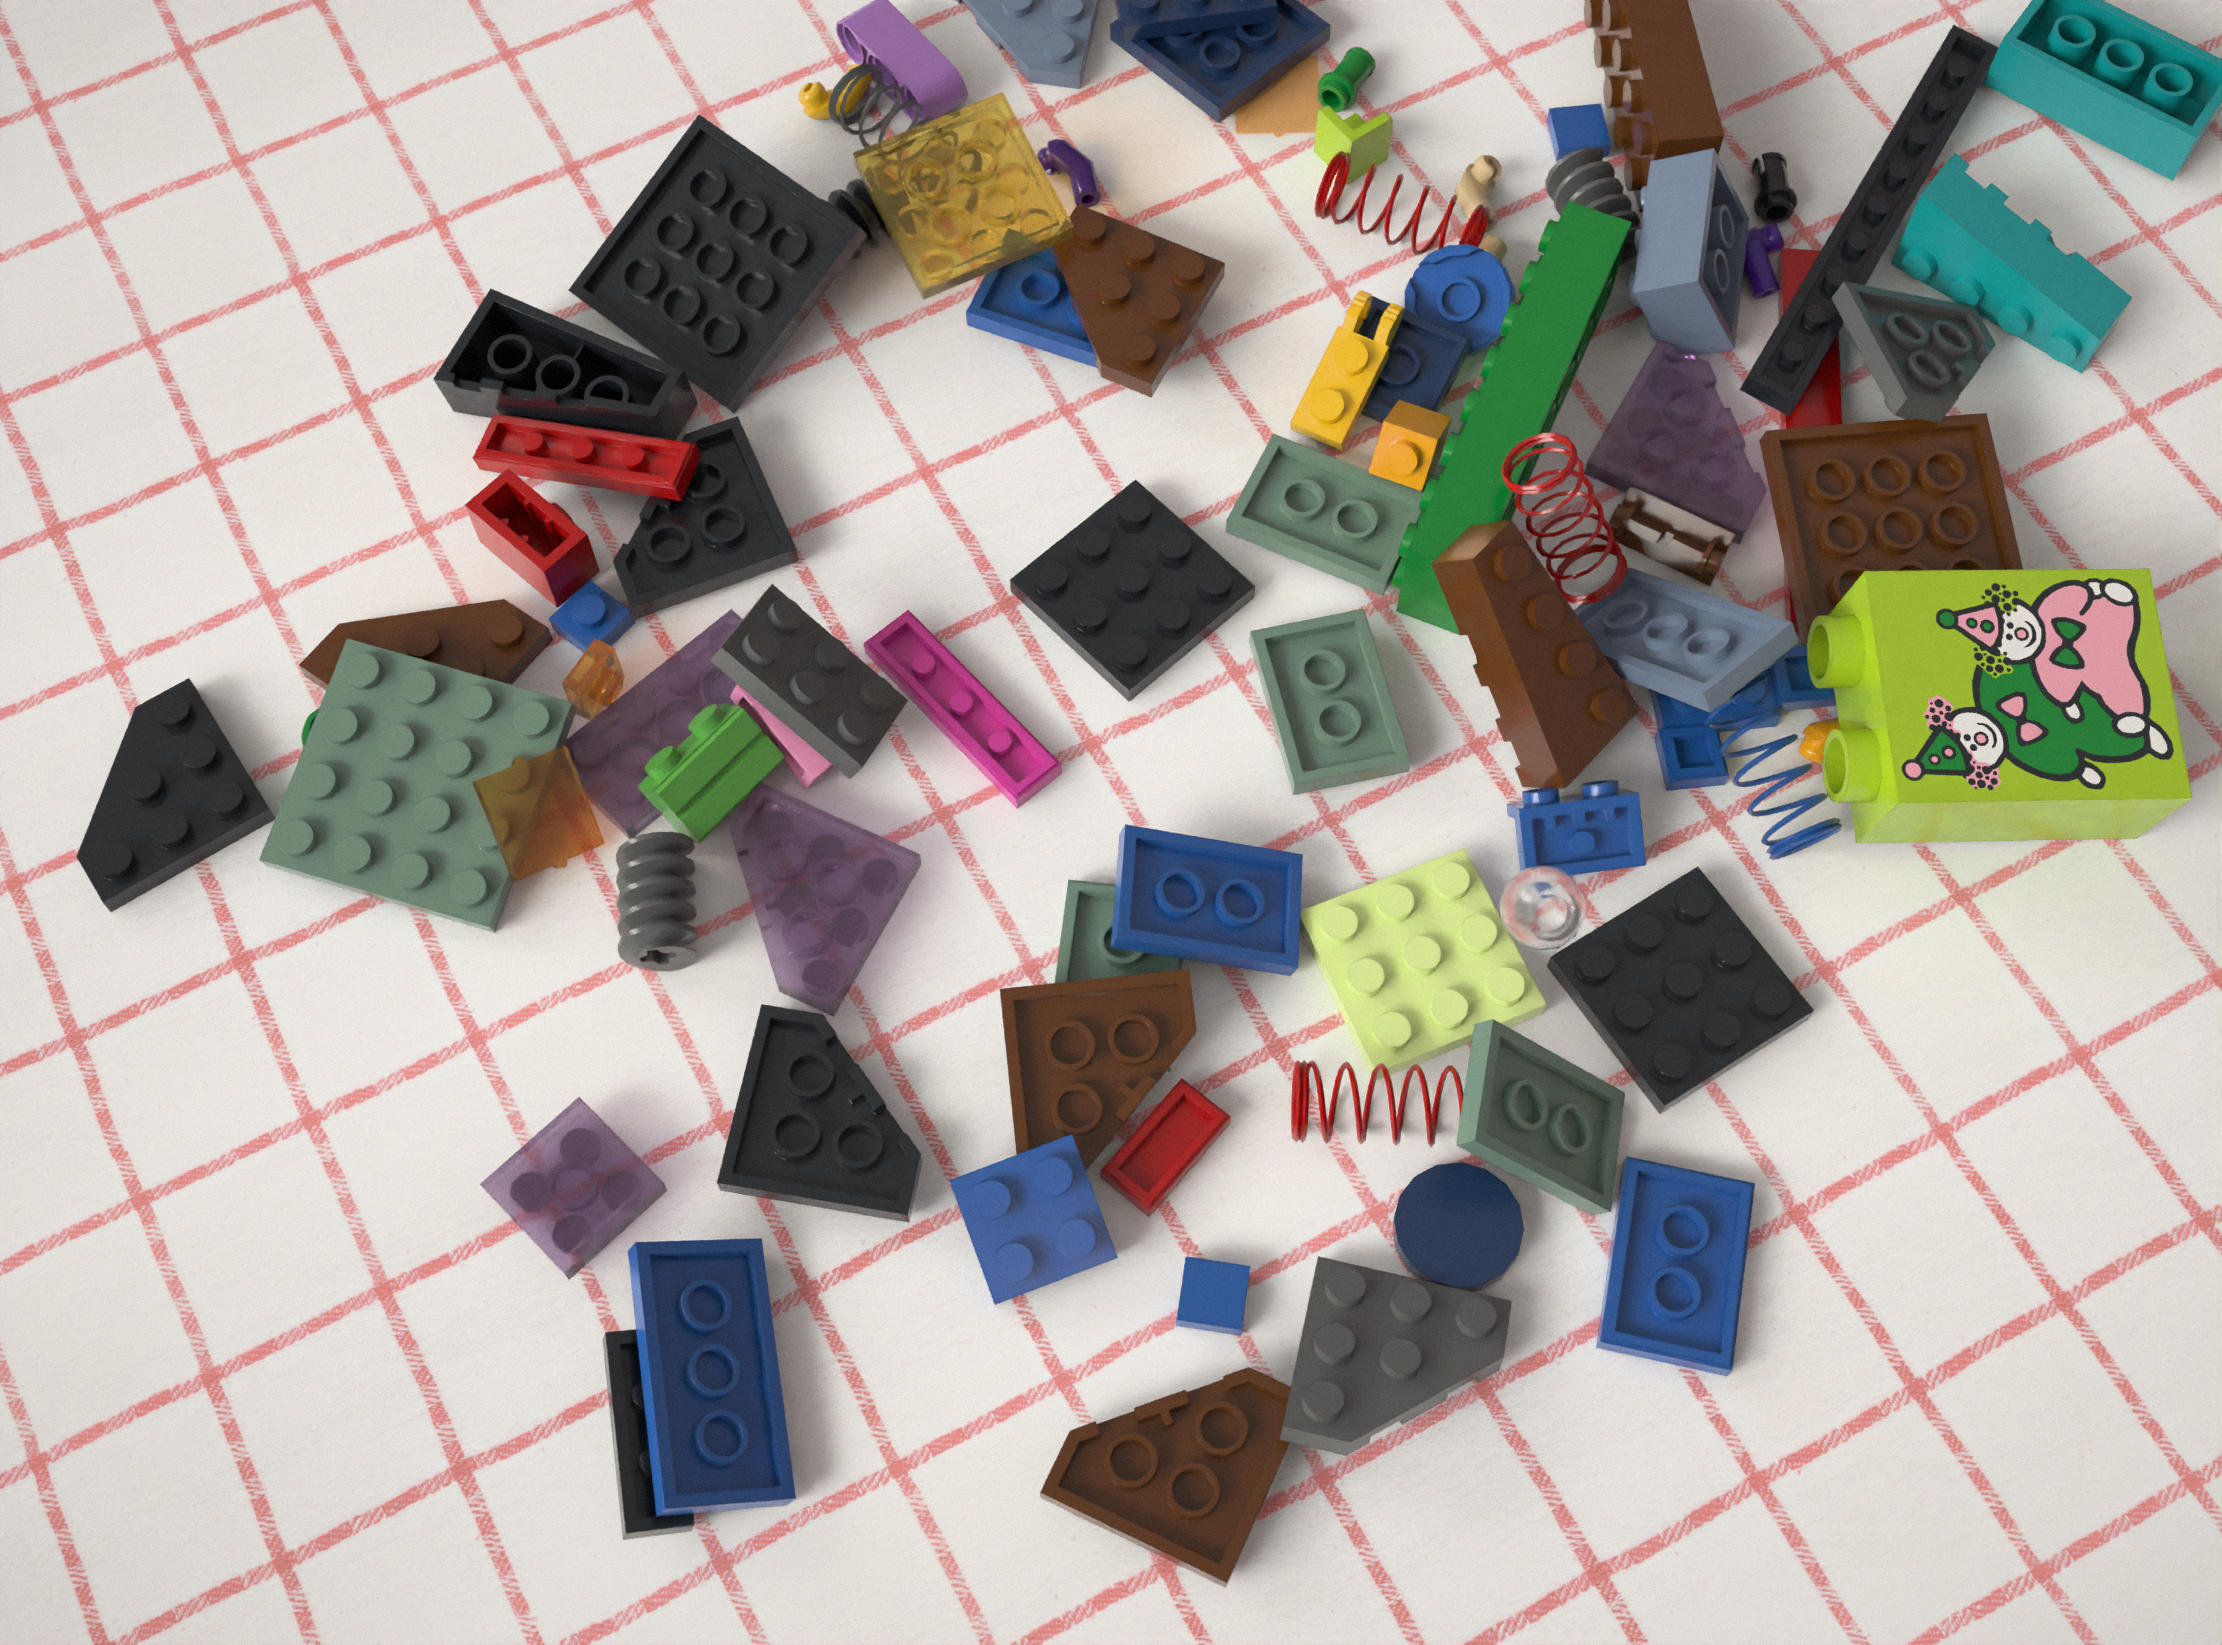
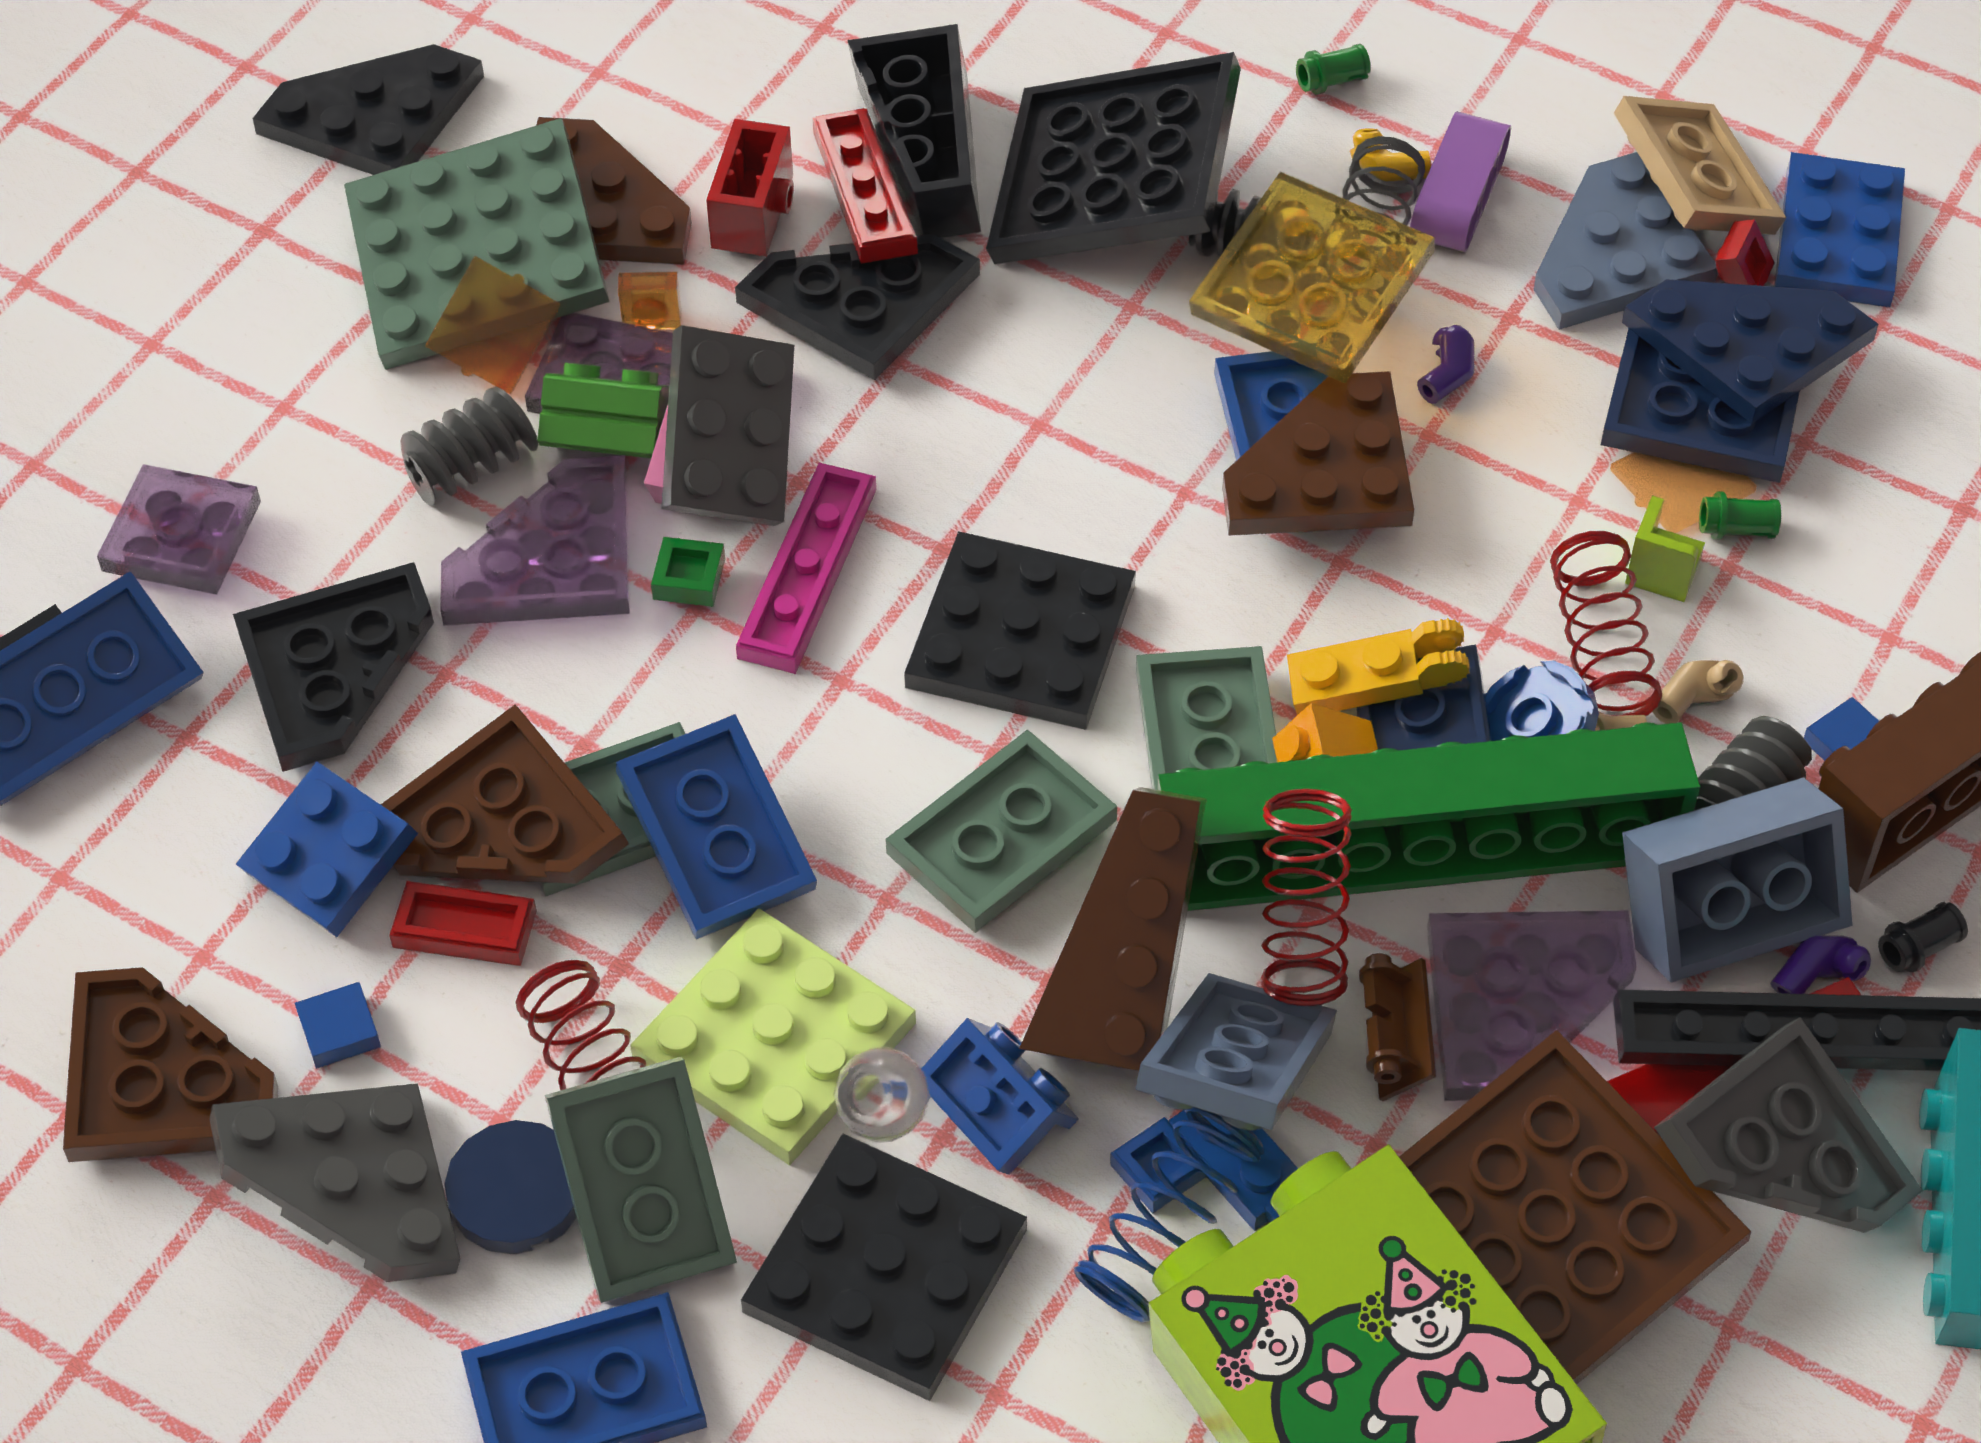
camera: 60 degrees right, 10 degrees down
(591, 615) = (713, 275): blue plate -> none
(711, 85) = (1319, 70): none -> green pin
(914, 796) = (688, 571): none -> green plate

